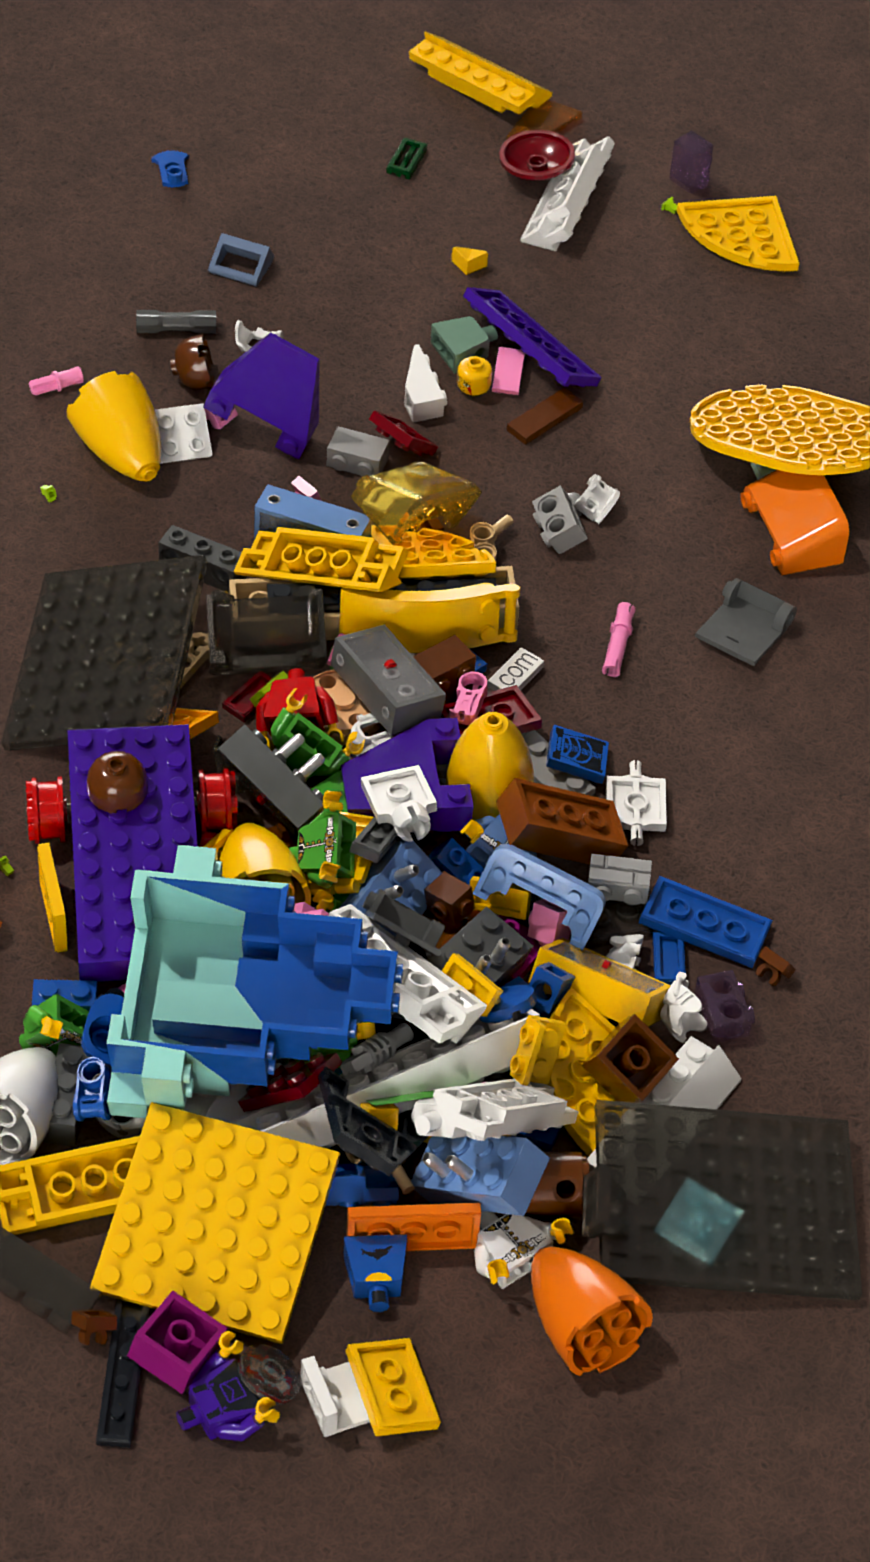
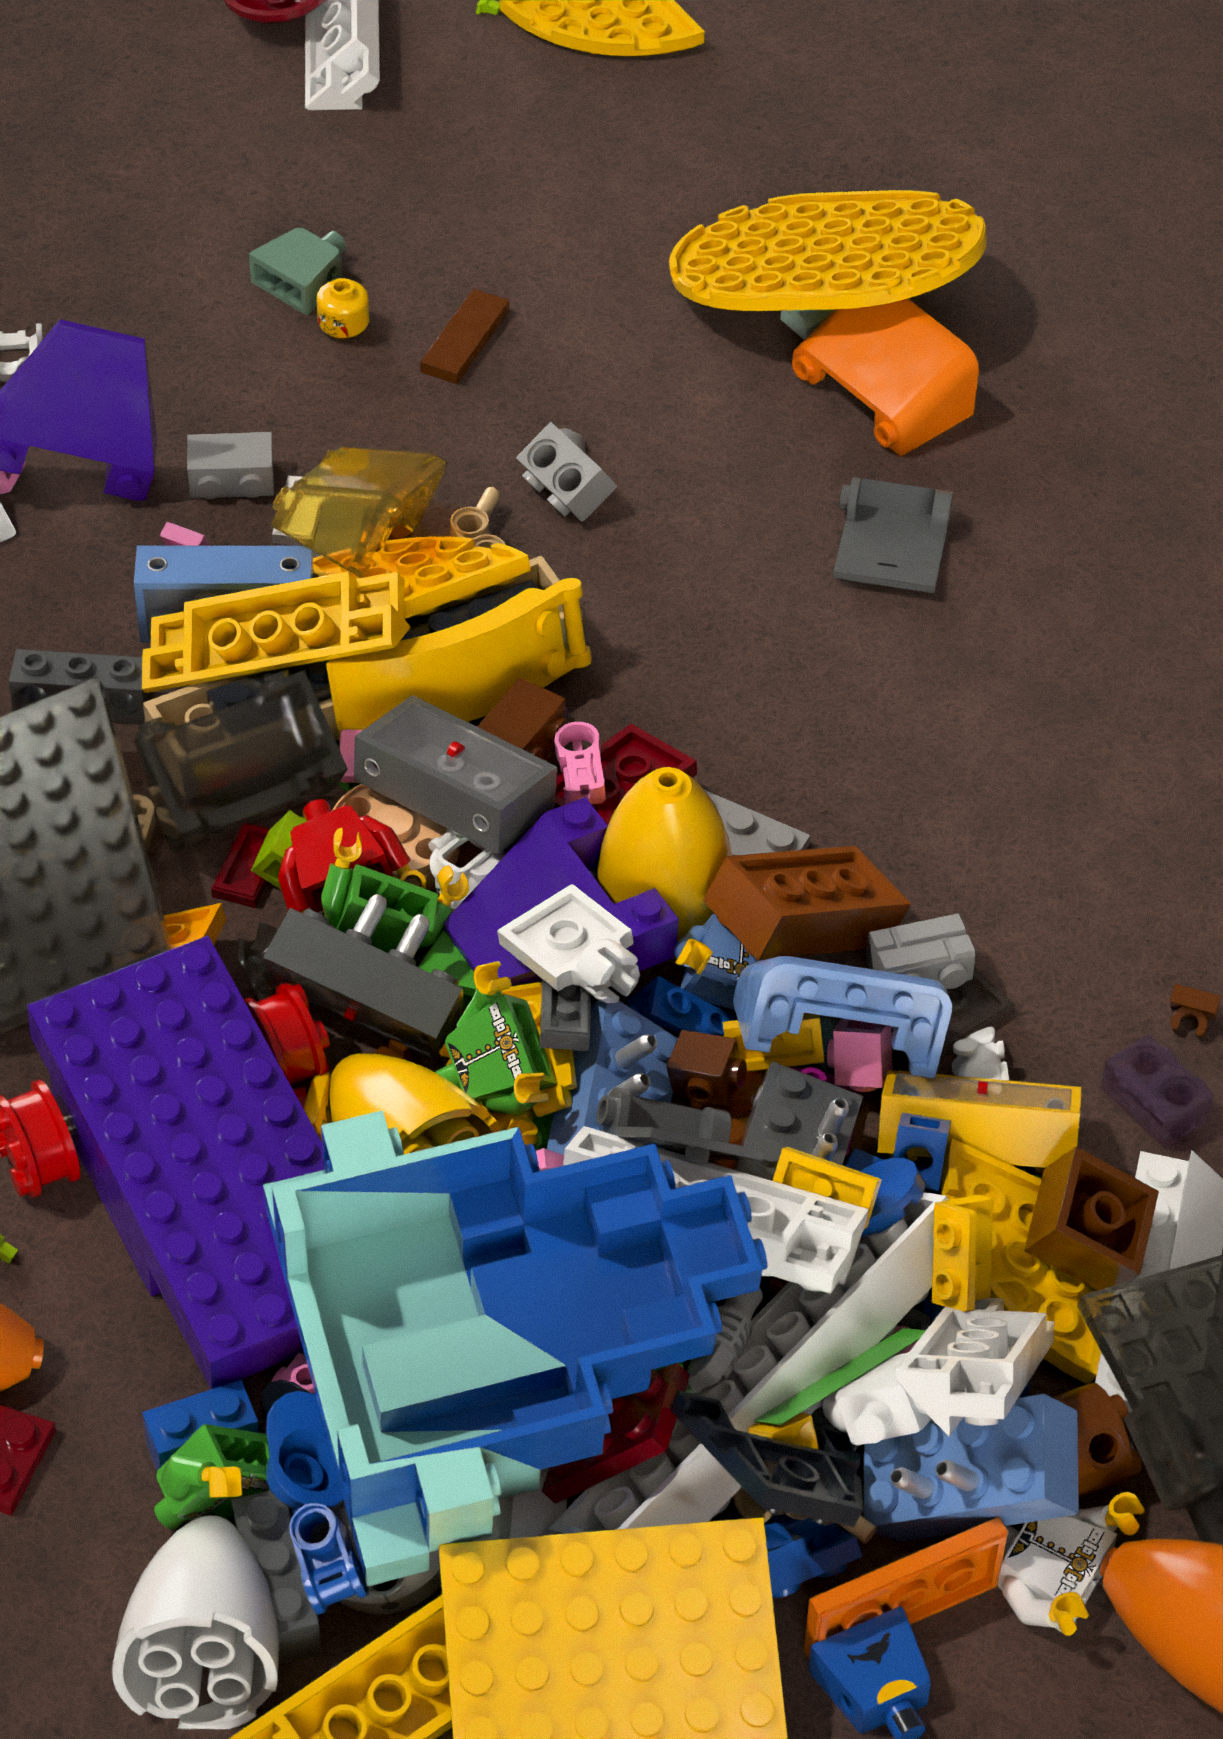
camera: 20 degrees left, 0 degrees up
(52, 897) = (107, 1273): yellow tile -> none
(117, 782) = (146, 1060): reddish brown cylinder -> none
(402, 170) = (90, 58): dark green tile -> none
(405, 436) = (284, 419): dark red plate -> none
(422, 391) = (278, 351): white slope -> none
(469, 259) = (250, 153): yellow slope -> none
(508, 371) = (385, 288): bright pink slope -> none
(516, 671) = (614, 703): white tile -> none
(531, 337) = (398, 232): dark purple plate -> none
(577, 754) = (764, 795): blue tile -> none
(597, 499) = (603, 428): white piece -> none
(620, 632) = (728, 601): bright pink pin -> none
(638, 802) = (884, 831): white plate -> none
(667, 957) = (1040, 1047): blue tile -> none
(682, 1009) = (1109, 1116): white helmet -> none
(705, 921) = (1066, 977): blue tile -> none

